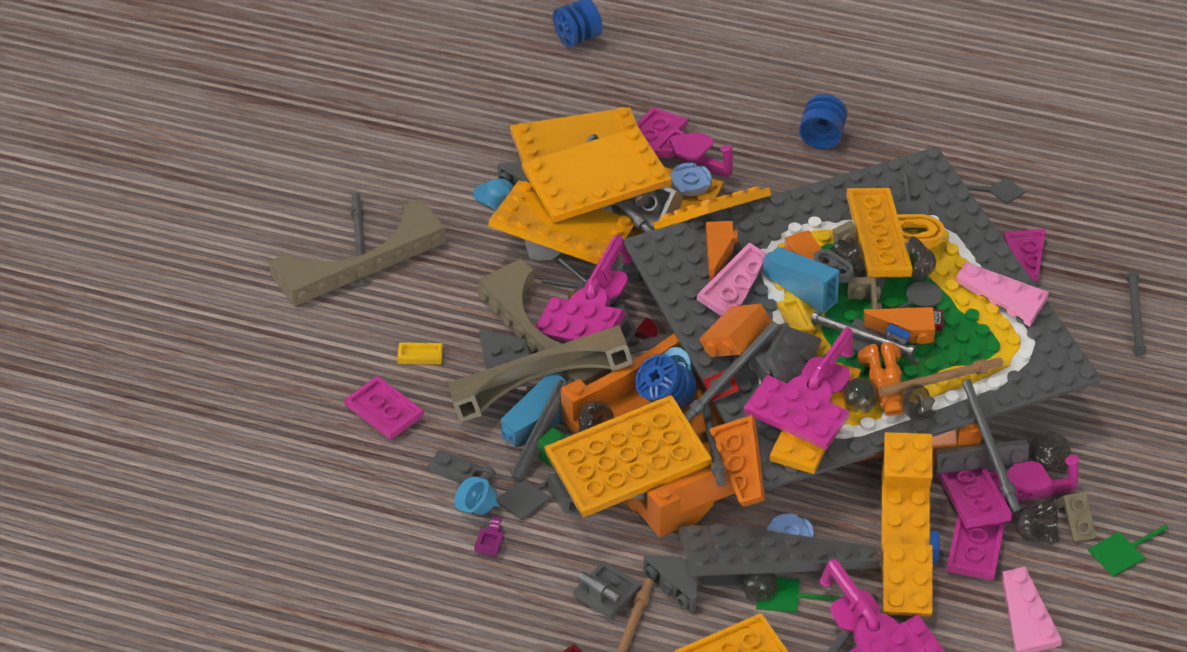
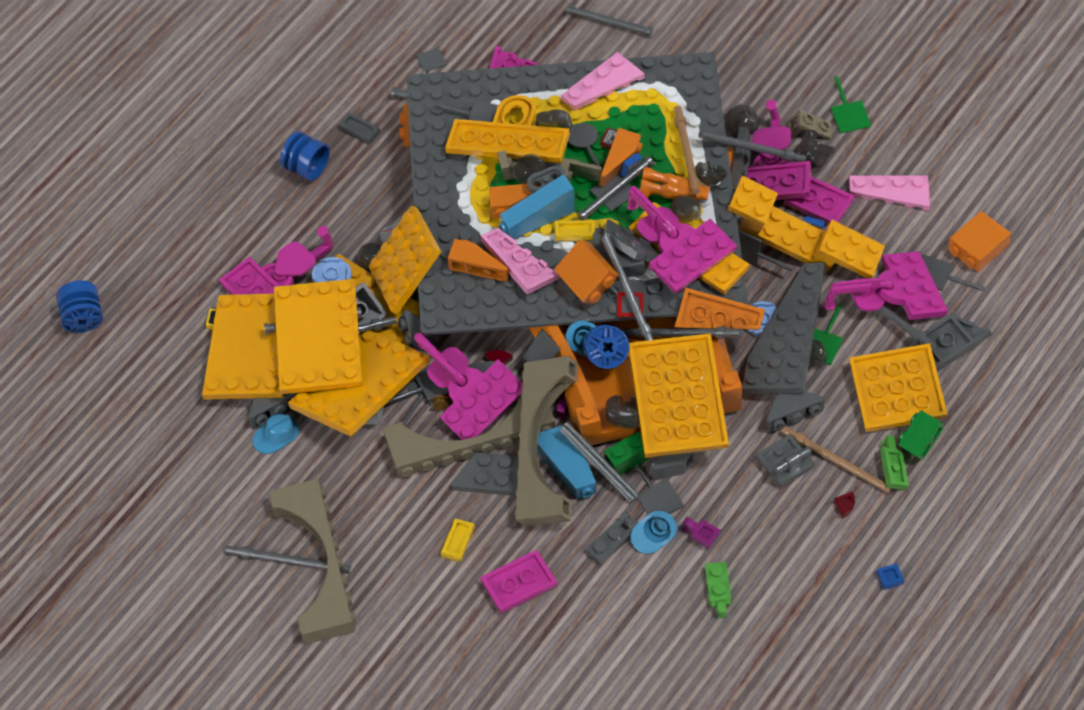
camera: 70 degrees left, 10 degrees up
(428, 570) = (718, 587): none -> bright green hinge
(870, 494) = (751, 250): none -> dark grey piece
(889, 152) = (359, 128): none -> dark grey tile

